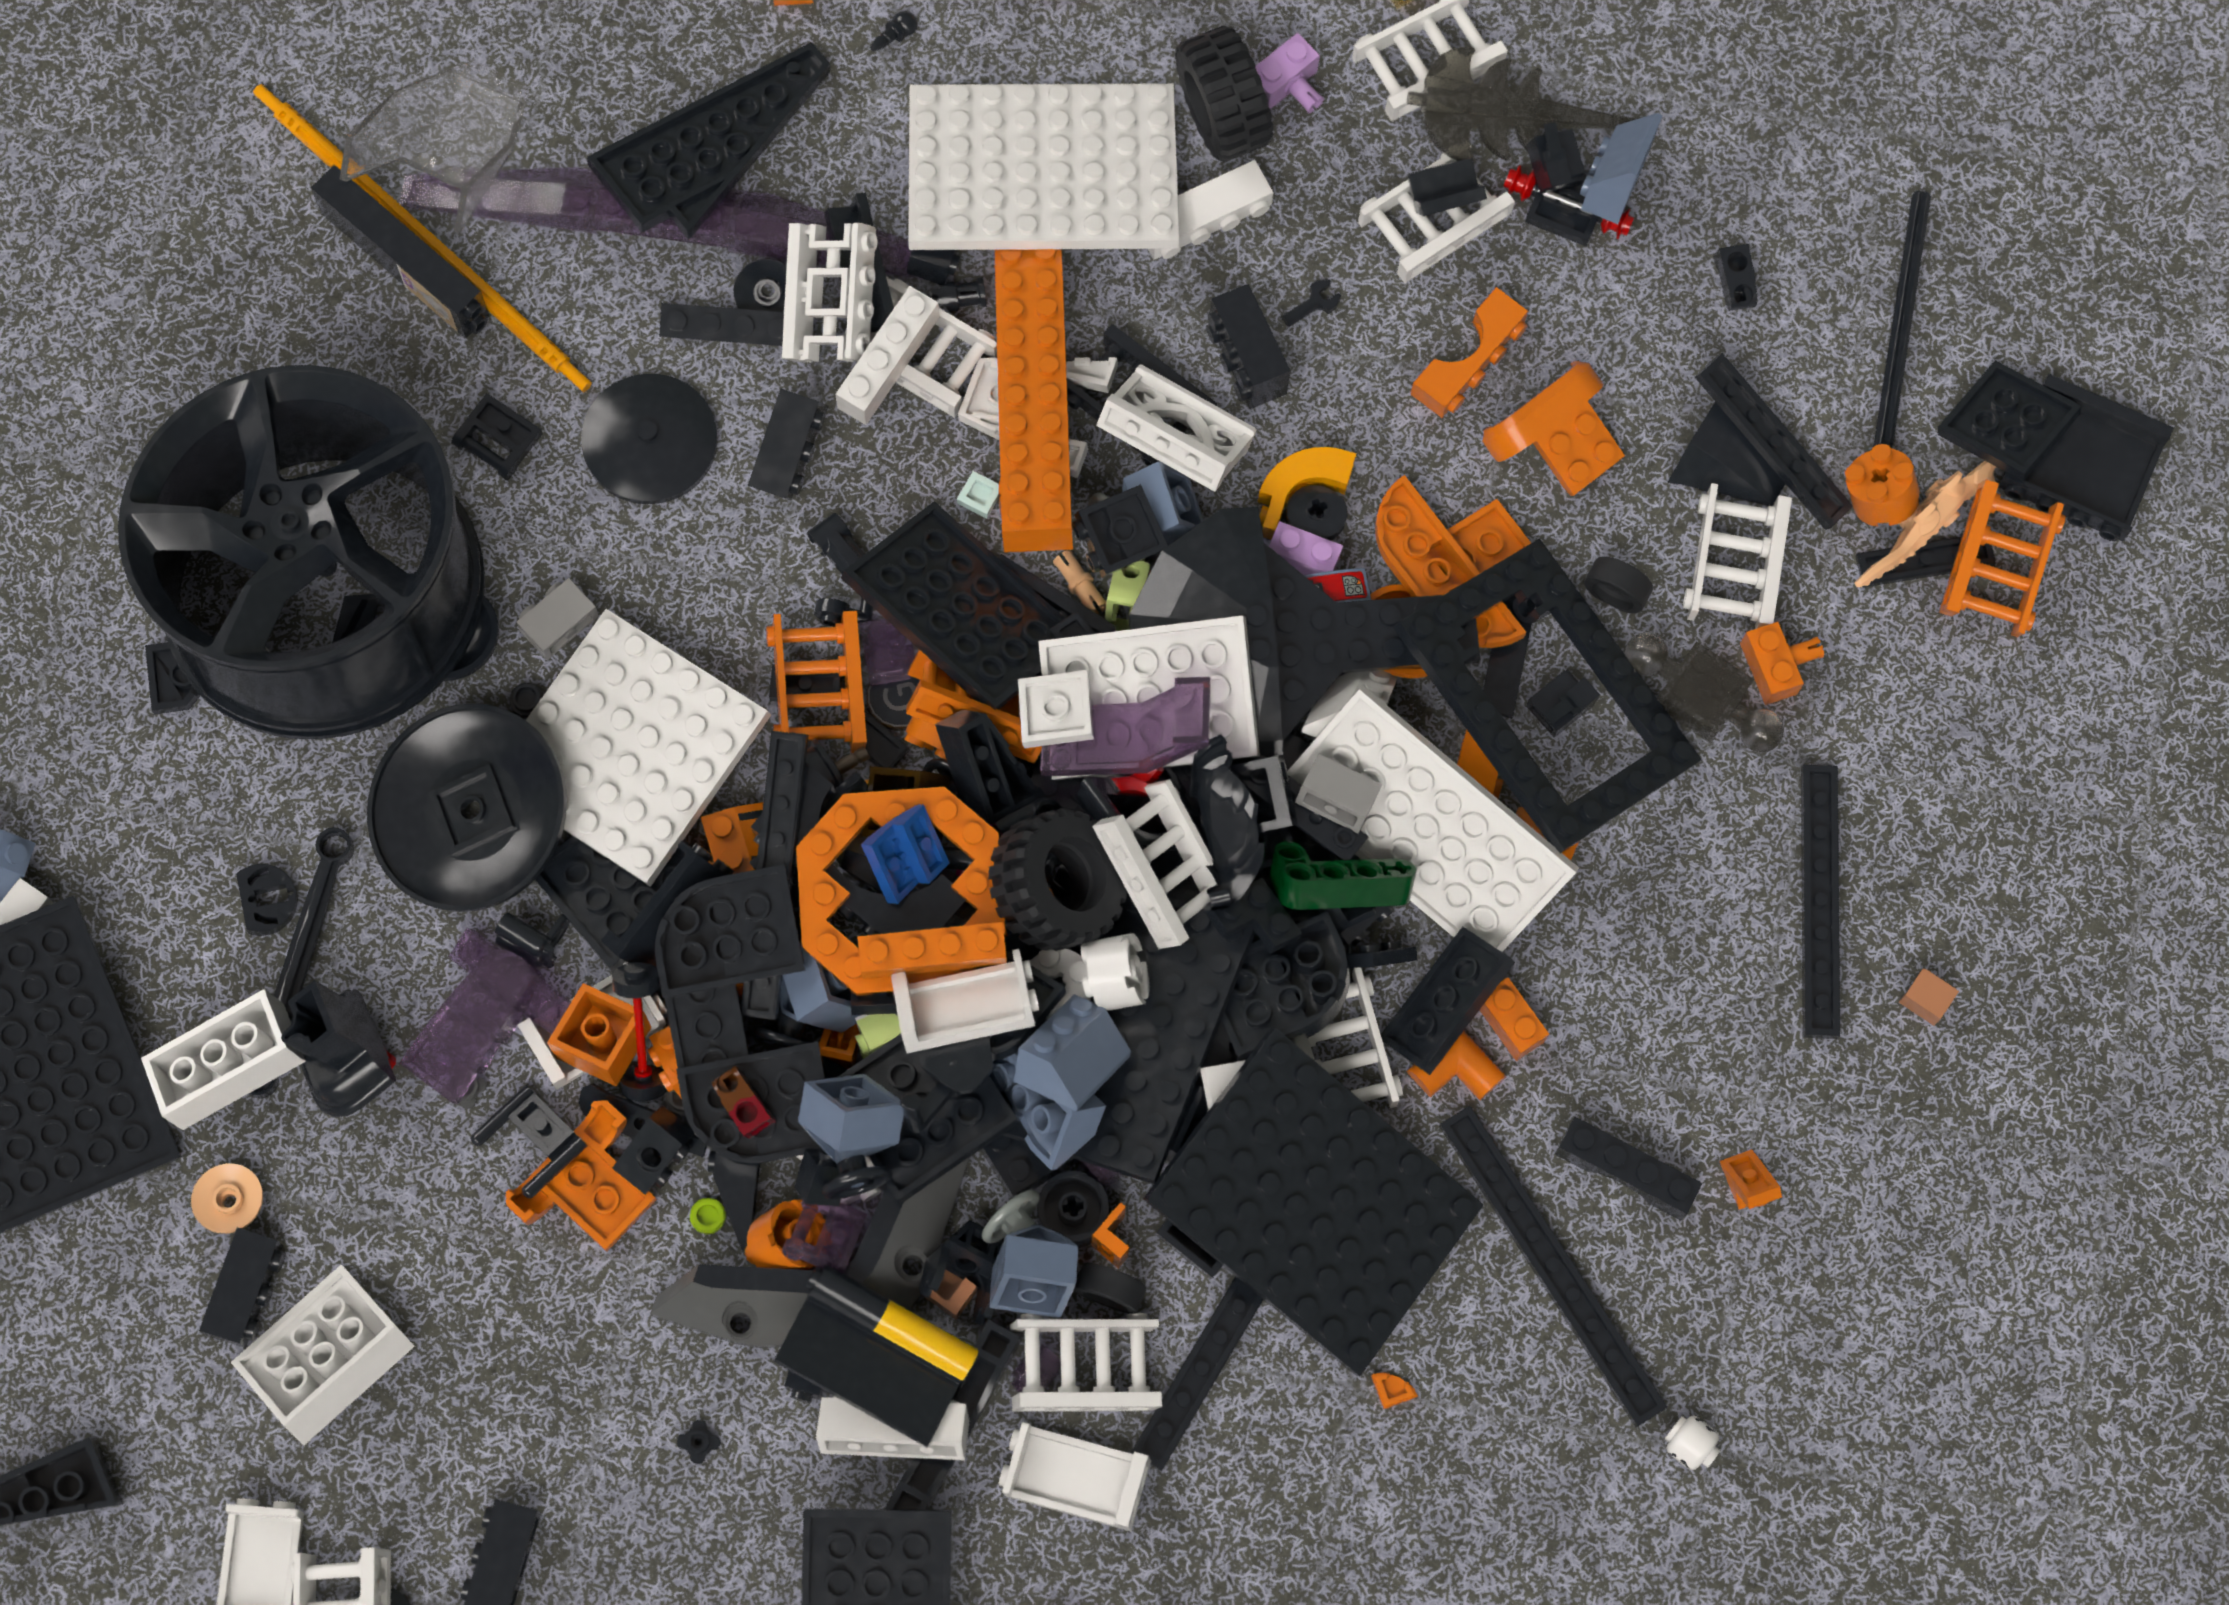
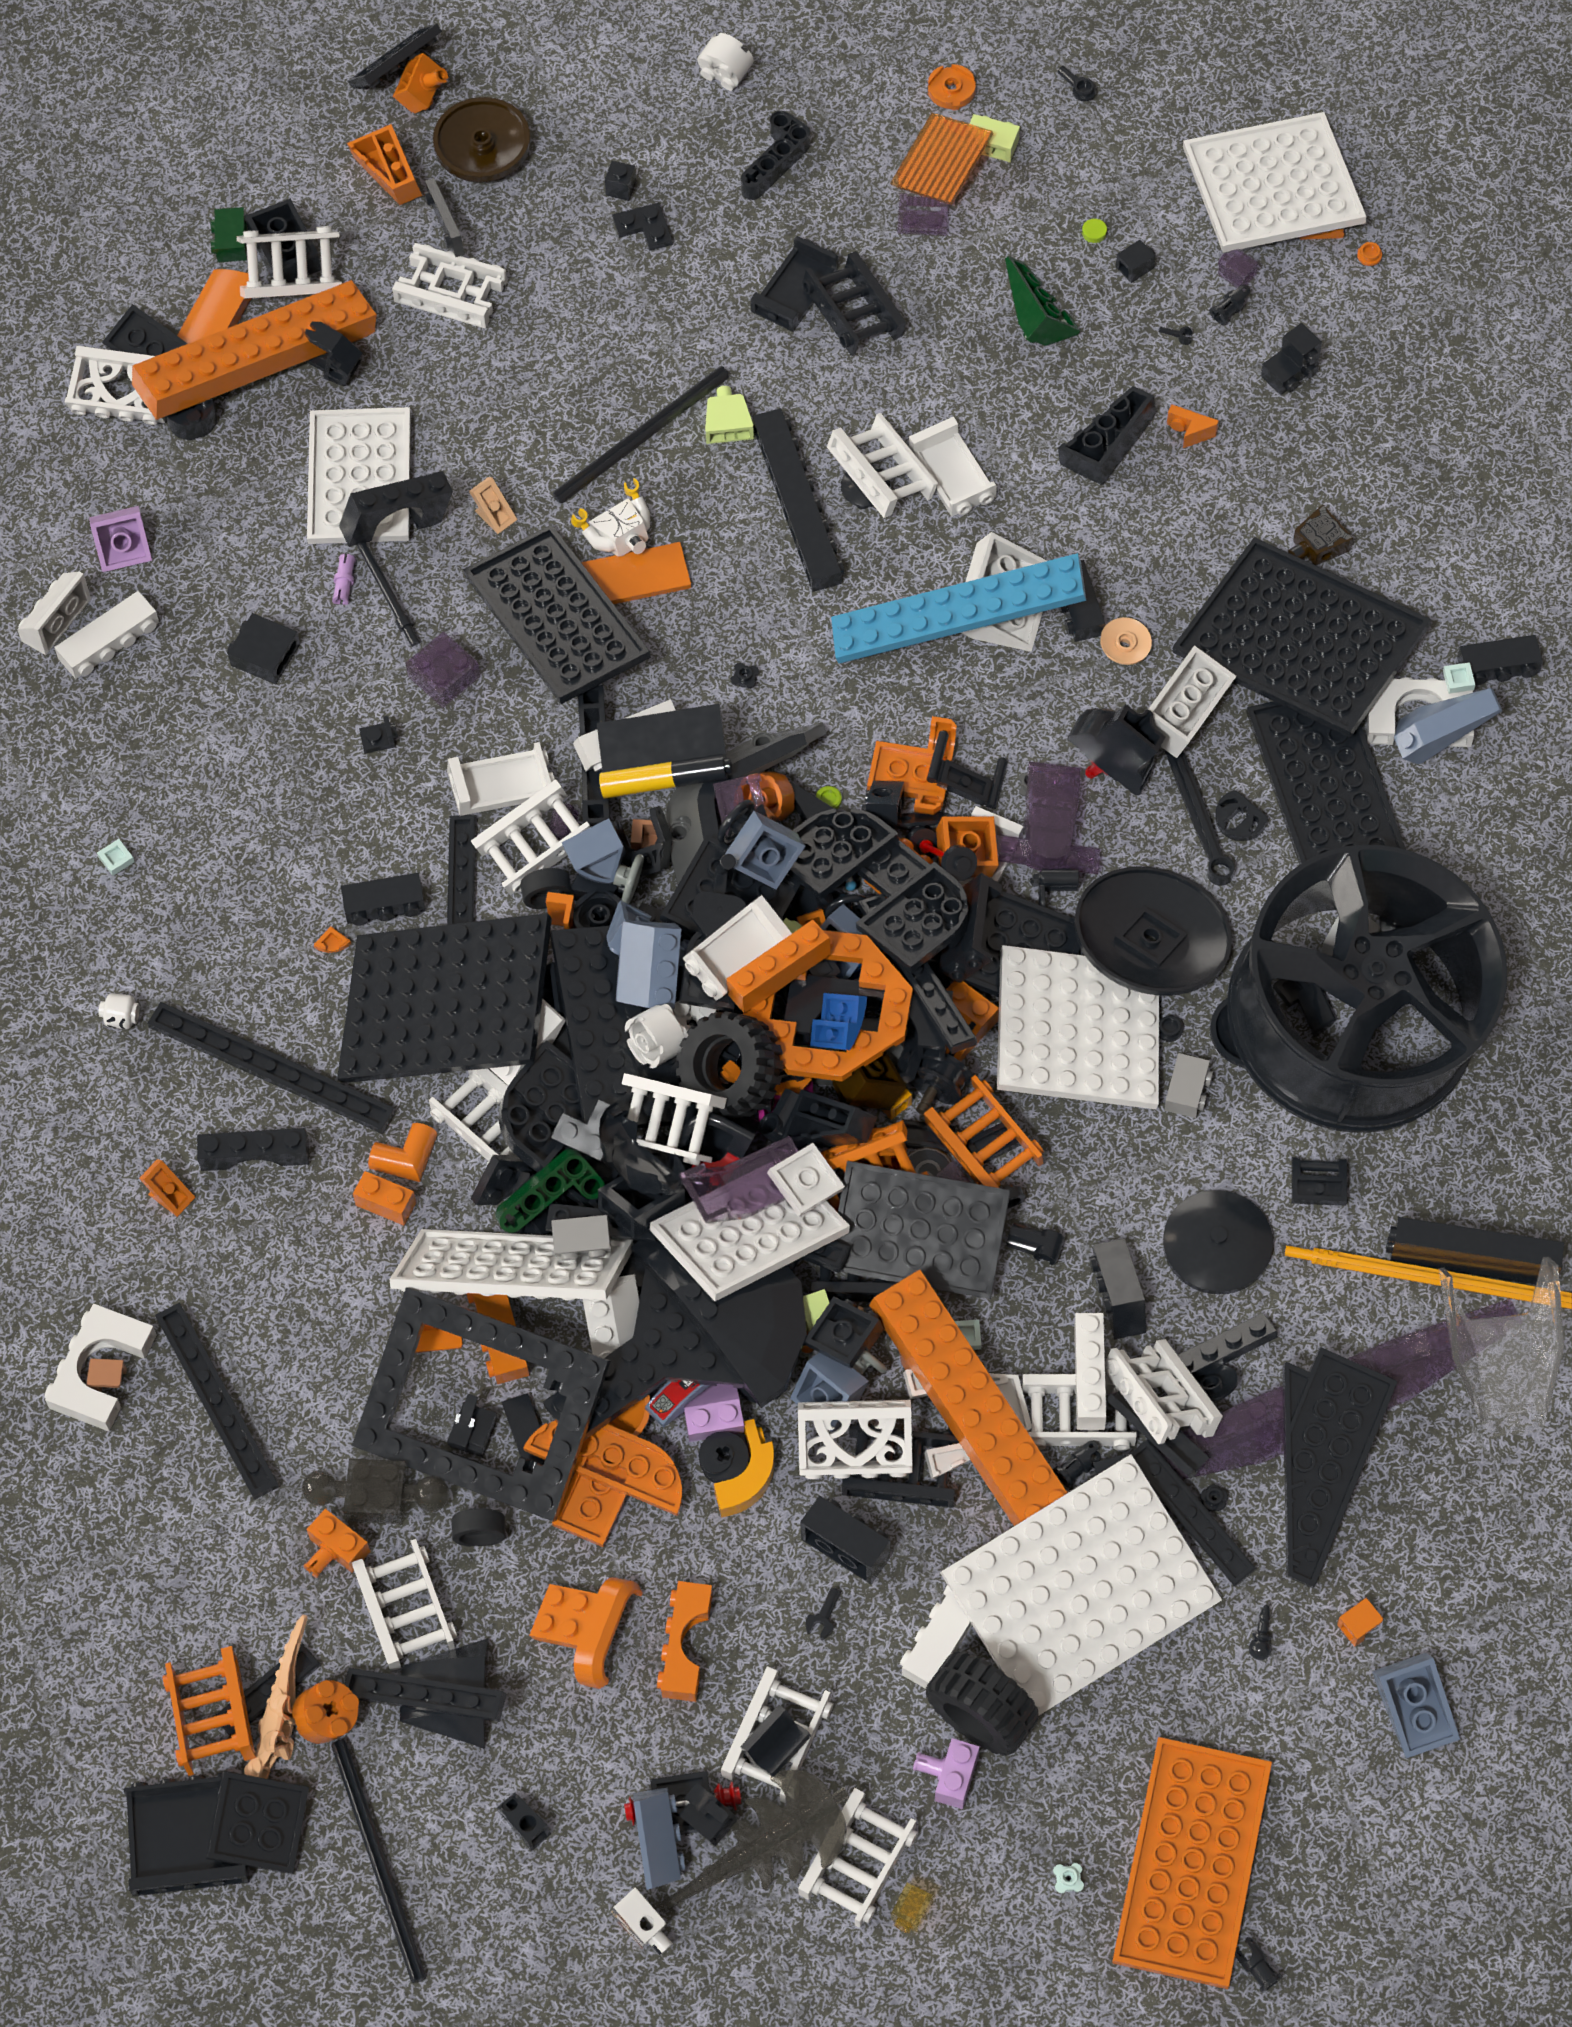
camera: 155 degrees right, 10 degrees down
(153, 859) = (1322, 783): none -> black plate
(396, 1341) = (958, 608): none -> dark azure plate
(742, 1102) = (840, 831): leg -> none
(845, 193) = (1214, 1505): none -> black plate
(880, 175) = (1192, 1514): none -> black tile
(1305, 1401) = (383, 899): none -> black brick
(1446, 1000) = (434, 1177): black plate -> none
(1678, 105) = (628, 1915): none -> white torso
(1907, 1054) = (99, 1330): none -> white arch

